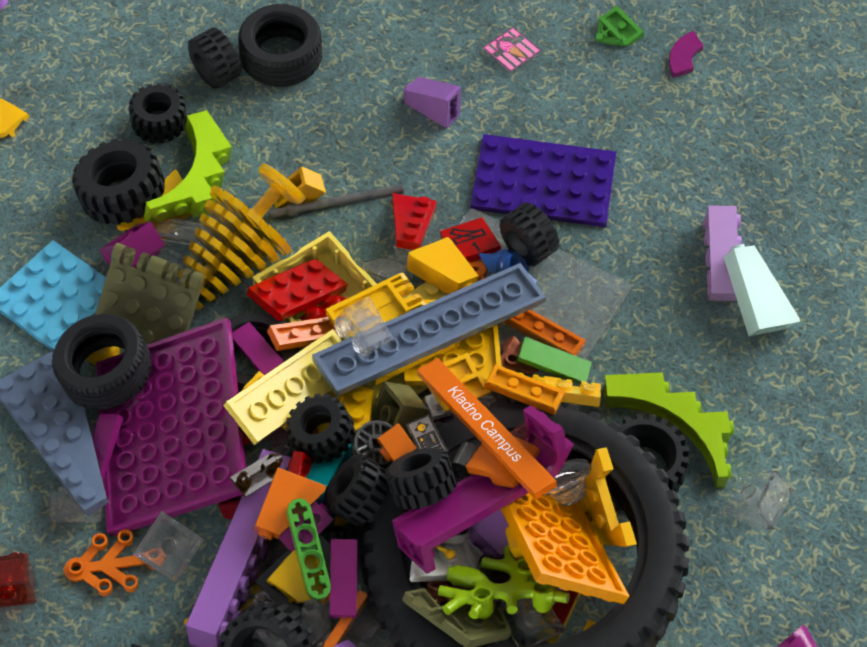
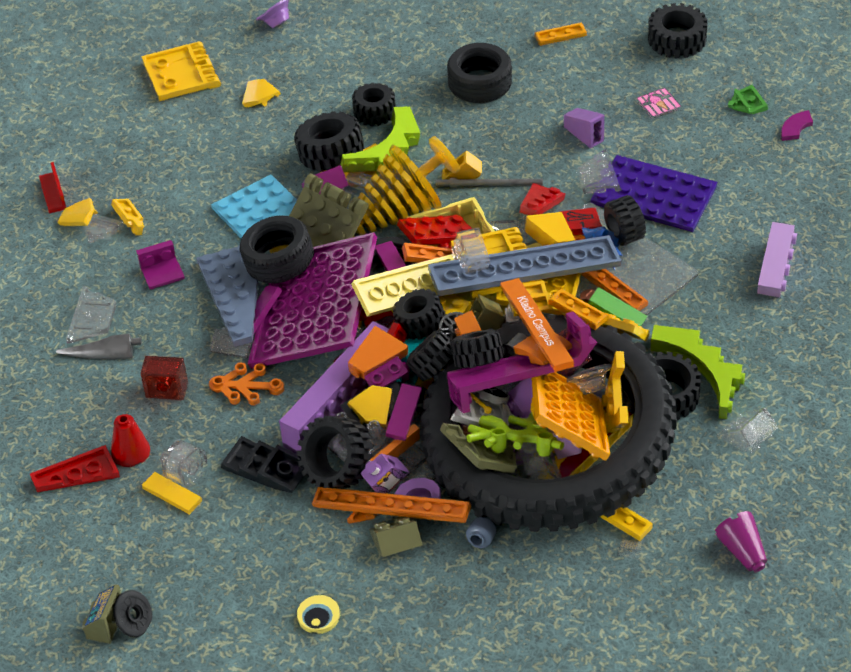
camera: 20 degrees right, 10 degrees down
(168, 547) = (287, 376): clear slope -> none
(214, 57) = (426, 72): black tyre -> none
(257, 474) = (356, 334): dark brown hinge -> none
(304, 550) = (382, 385): bright green beam -> none
(425, 434) = (495, 323): tile -> none
(471, 168) = (598, 174): none -> clear wing
(758, 293) = (794, 290): light aqua slope -> none

